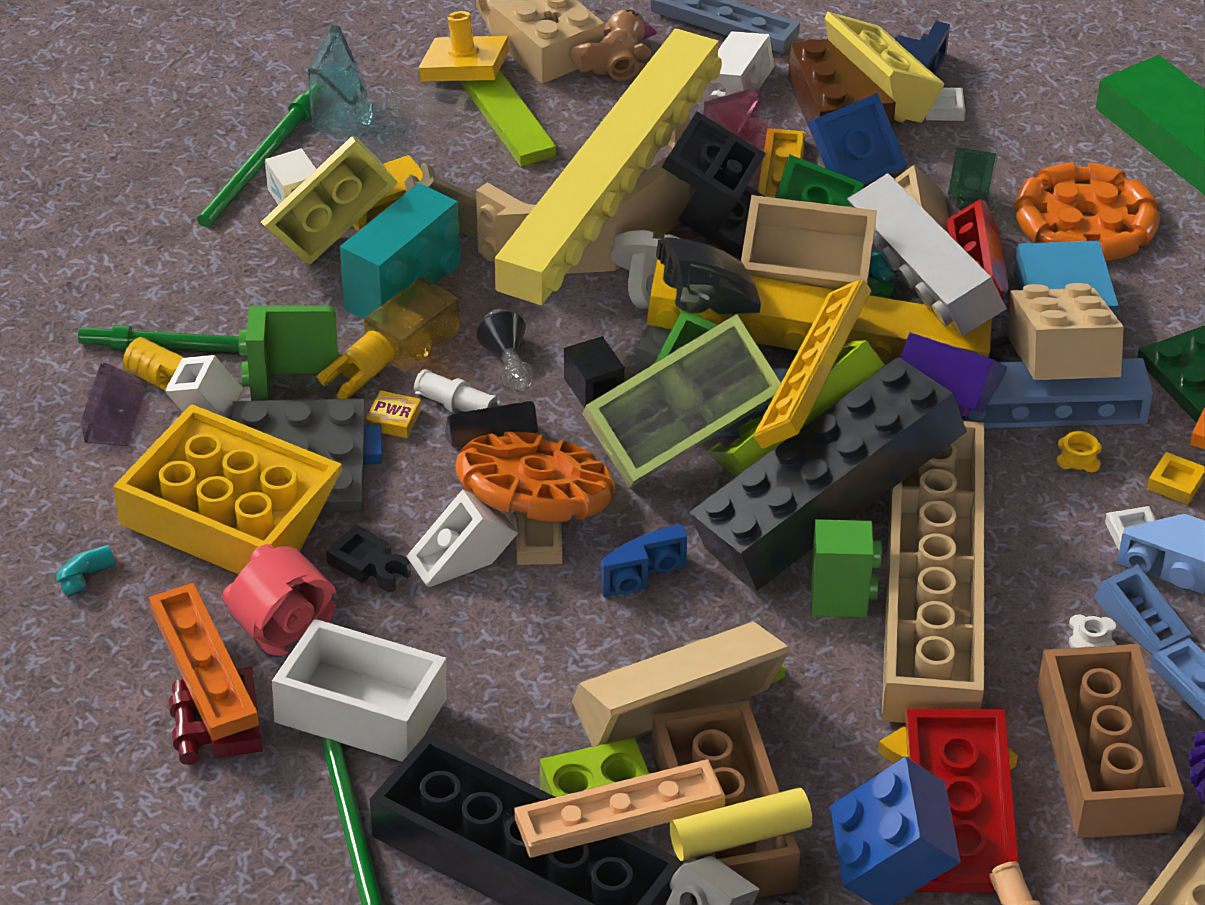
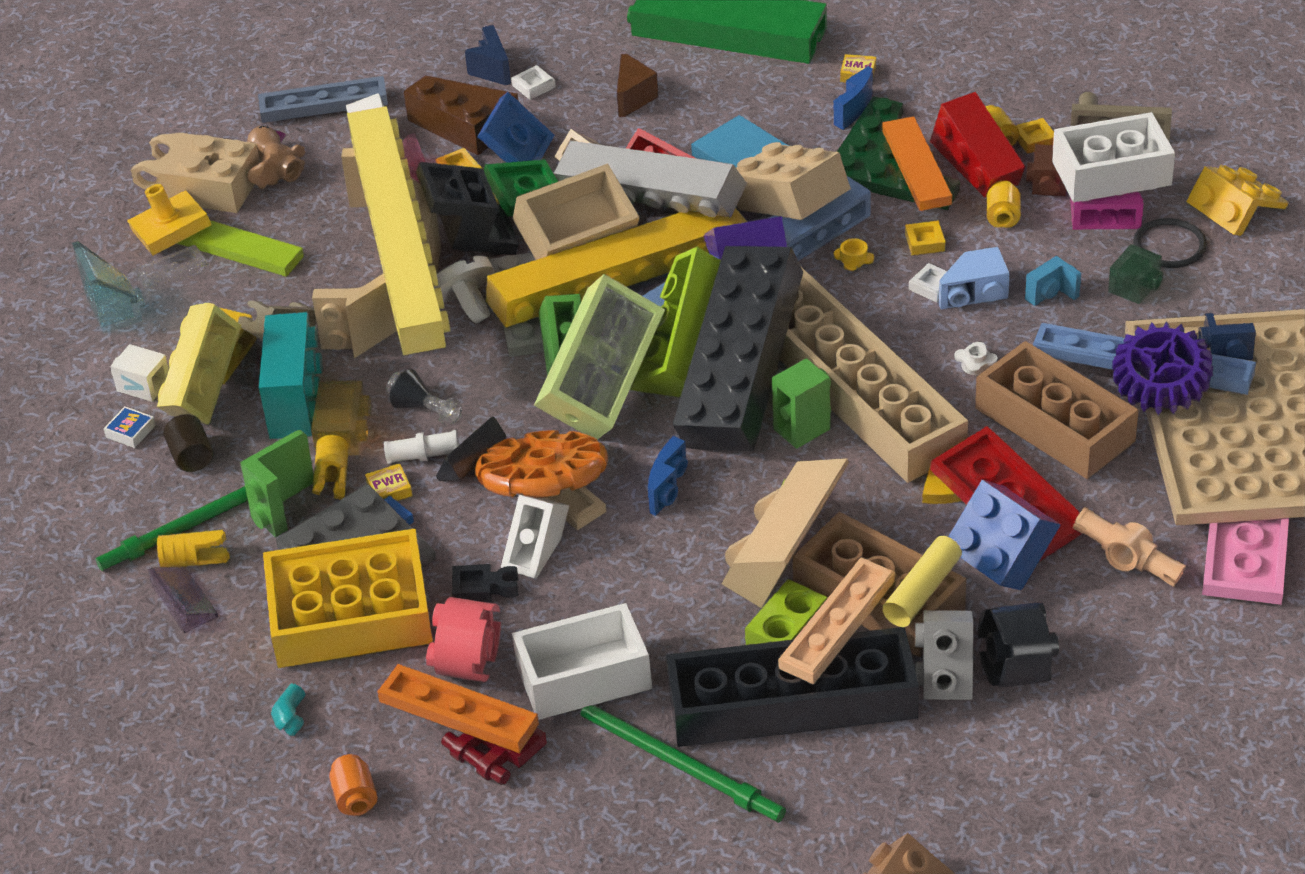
camera: 35 degrees left, 0 degrees up
(53, 673) = (352, 785): none -> orange brick
(204, 384) = (245, 541): white brick -> none
(238, 227) = (129, 427): none -> tile
(262, 269) = (188, 443): none -> dark brown piece
(298, 111) = (81, 324): green bar -> none
(592, 369) = (500, 378): black brick -> none
(706, 278) = (542, 267): black slope -> none
(812, 364) = (669, 283): yellow tile -> none
(886, 64) = (481, 71): light yellow slope -> none
(972, 176) = (613, 118): clear green brick -> none
(1028, 155) = (635, 85): none -> reddish brown slope
(1130, 213) = (679, 108): orange plate -> none
(1134, 581) = (979, 322): medium blue slope -> none

